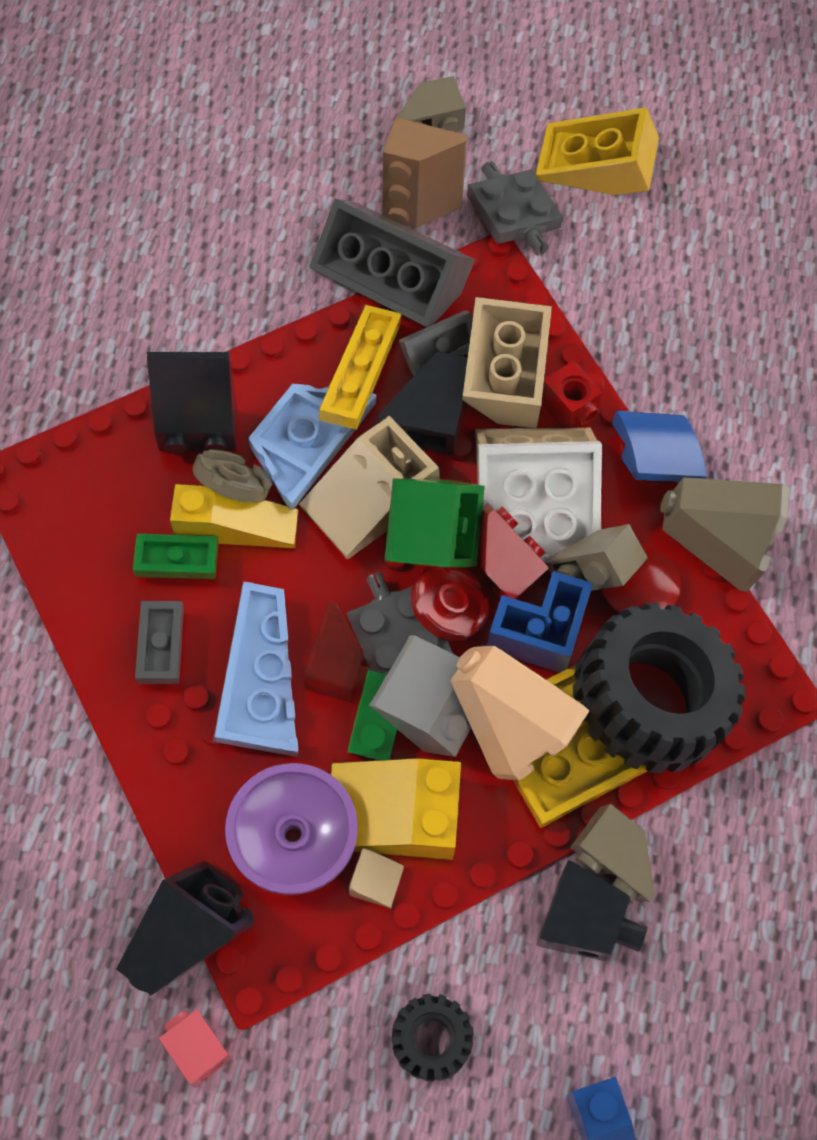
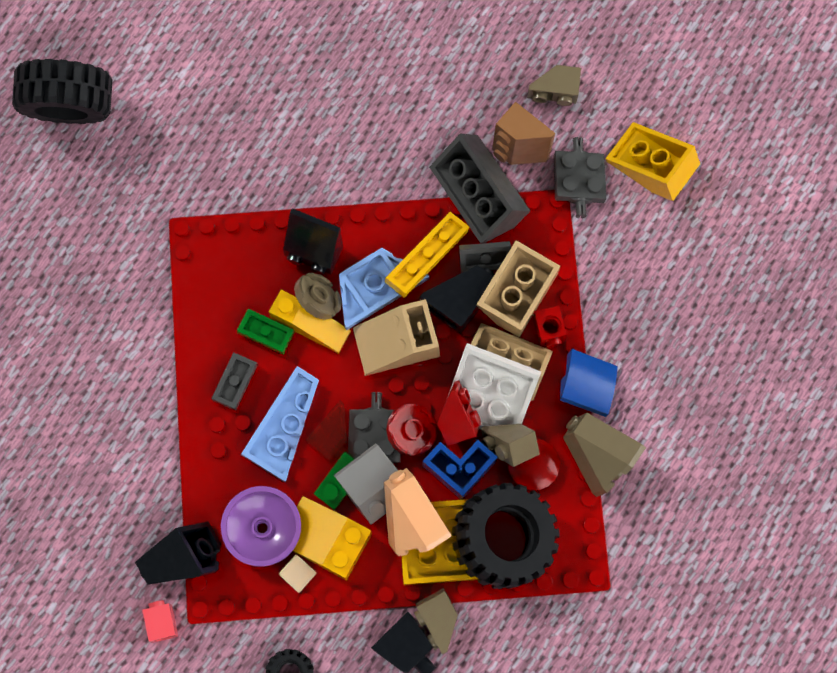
camera: 25 degrees right, 10 degrees up
(434, 522) = (421, 379): green slope -> none

